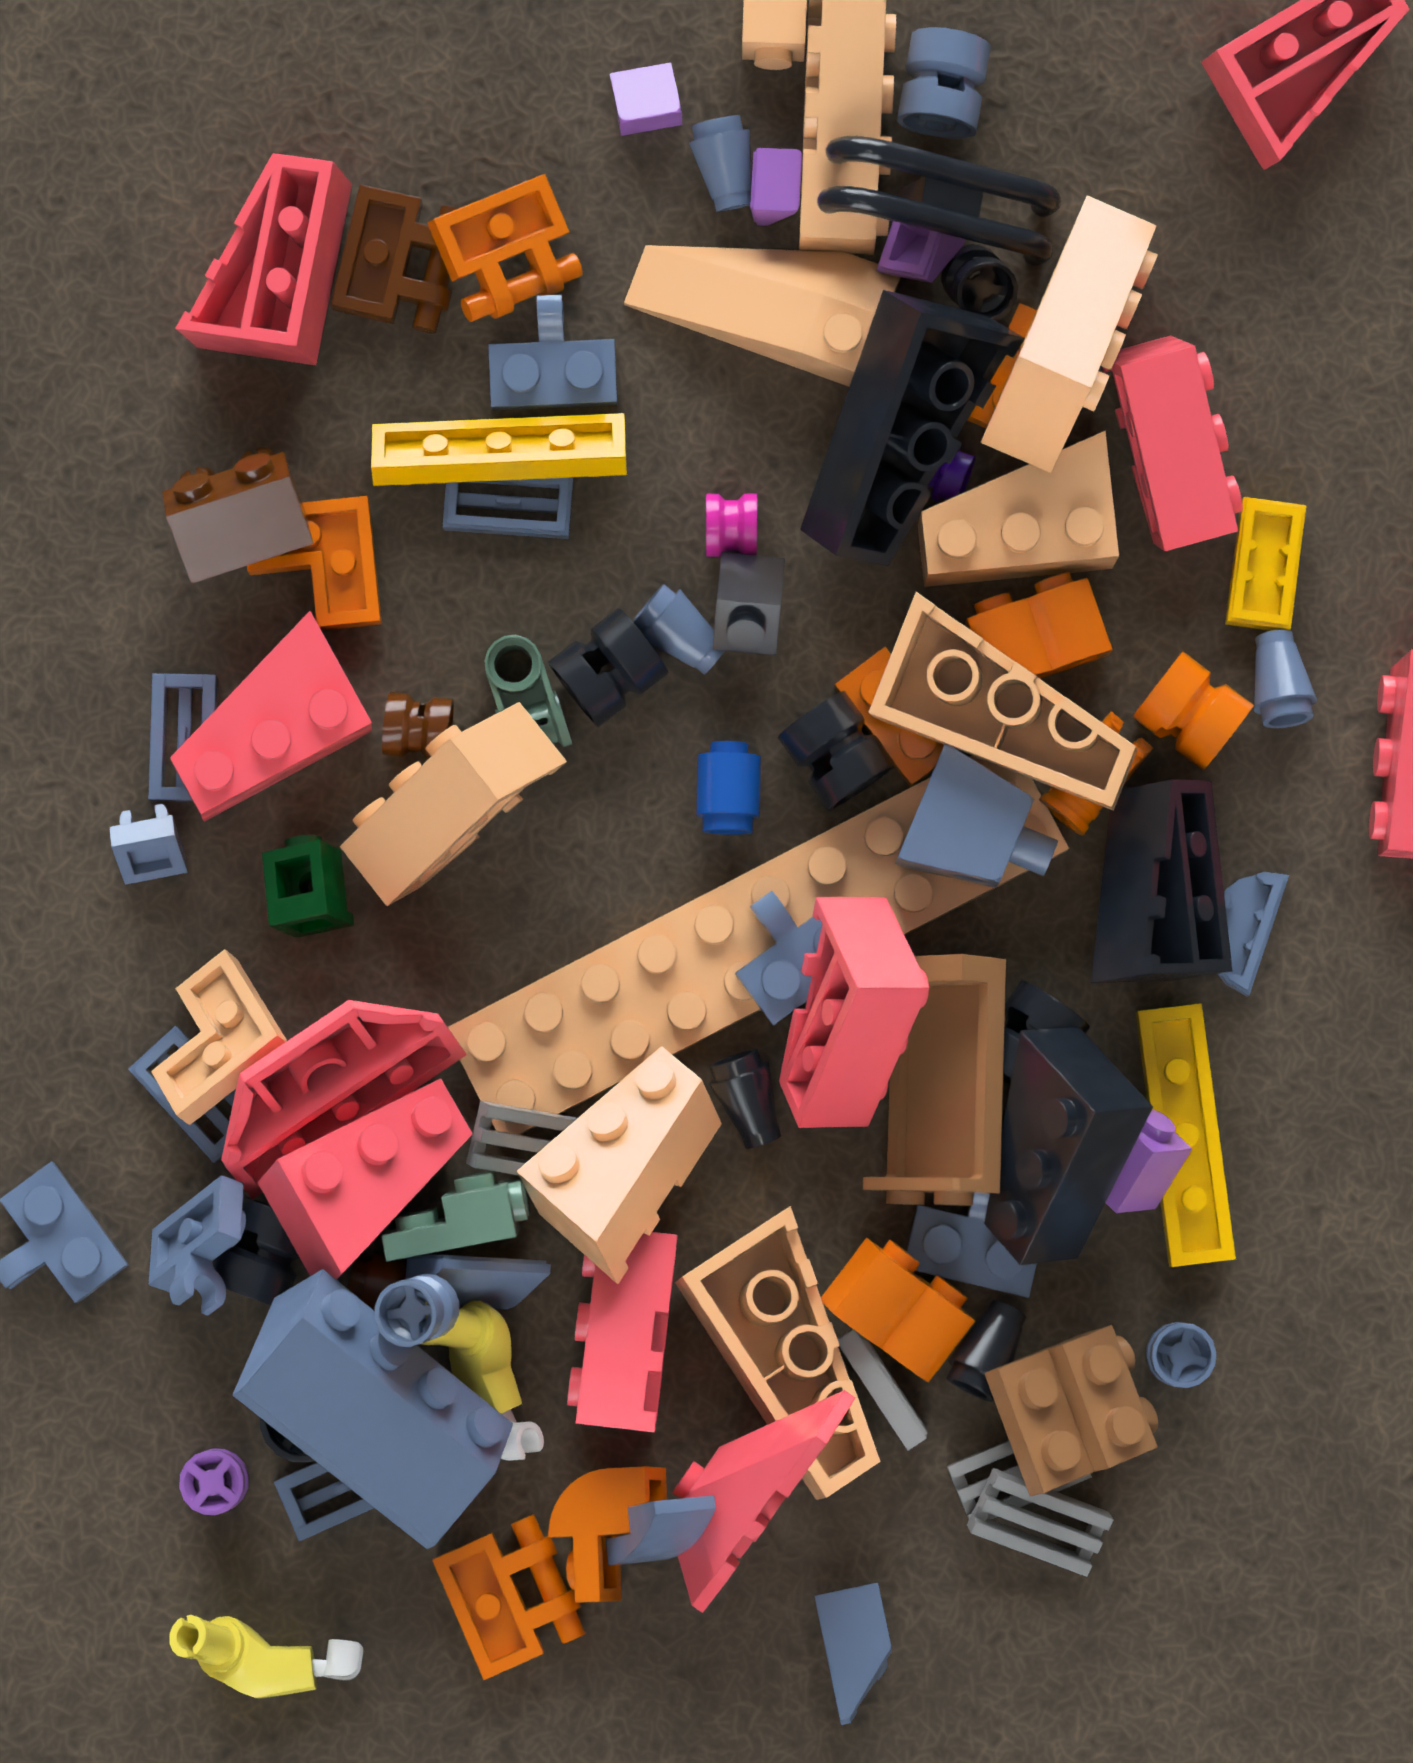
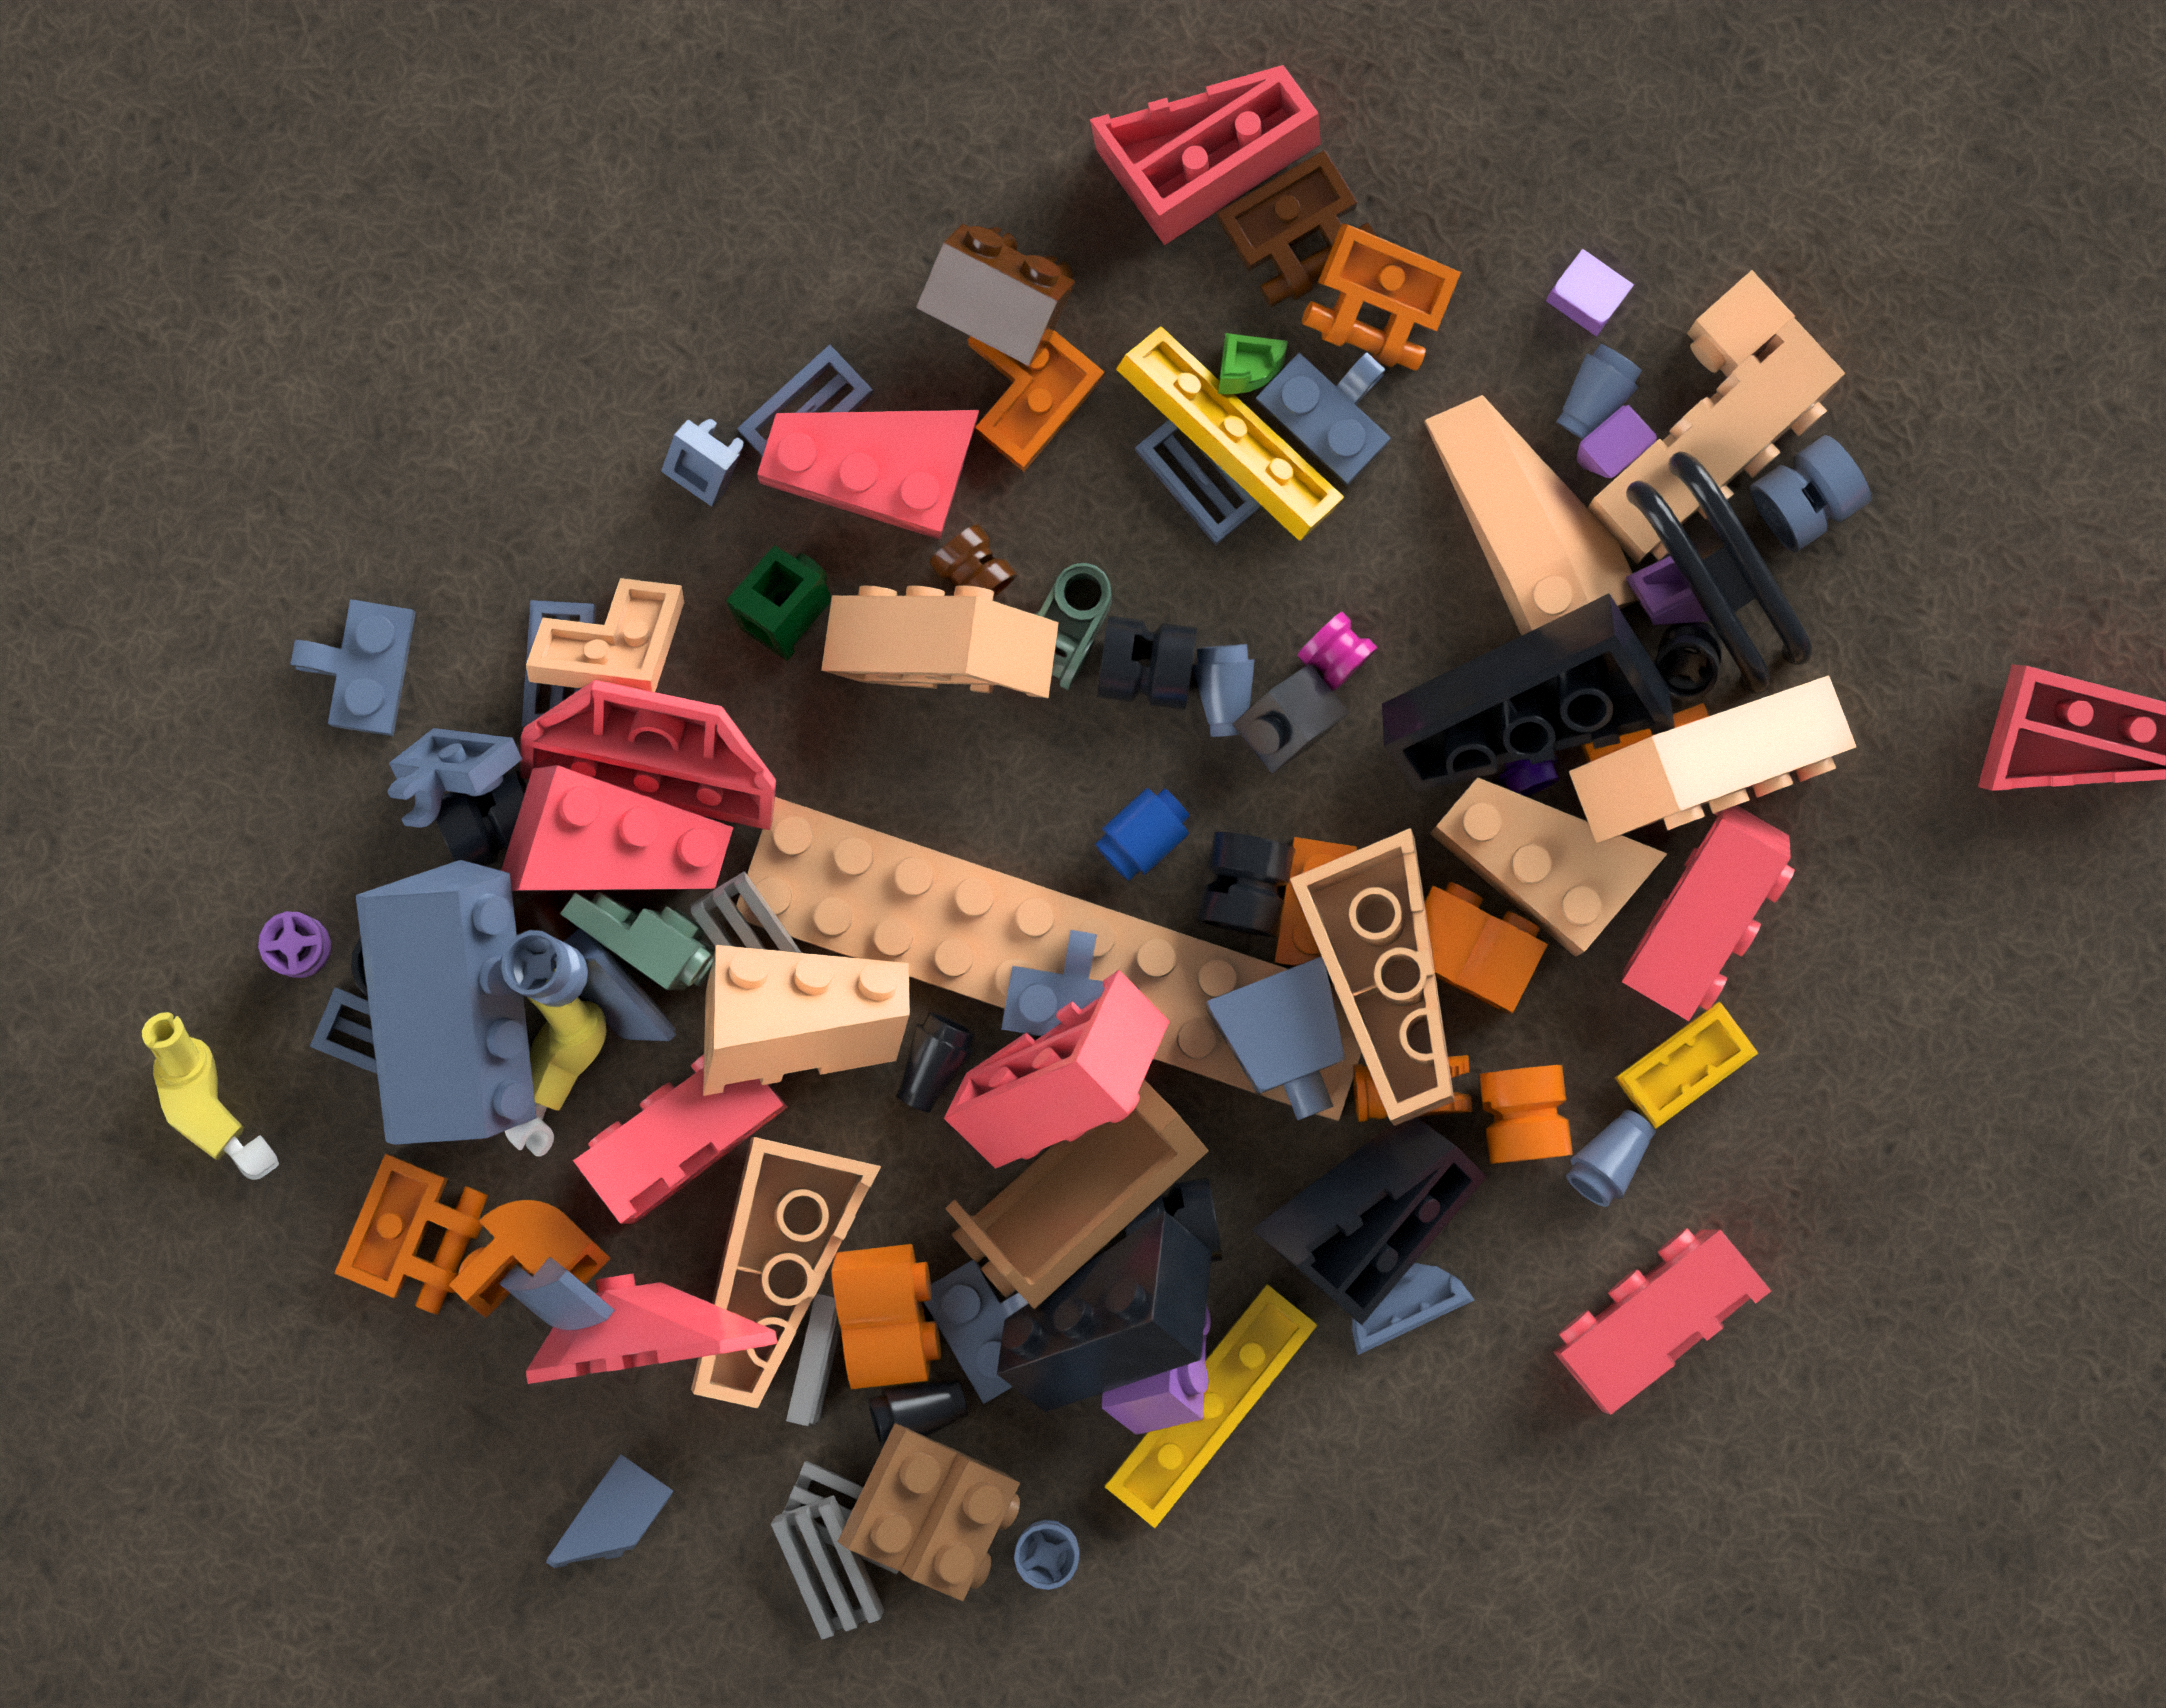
camera: 45 degrees right, 0 degrees up
(461, 387) = (1249, 362): none -> bright green tile

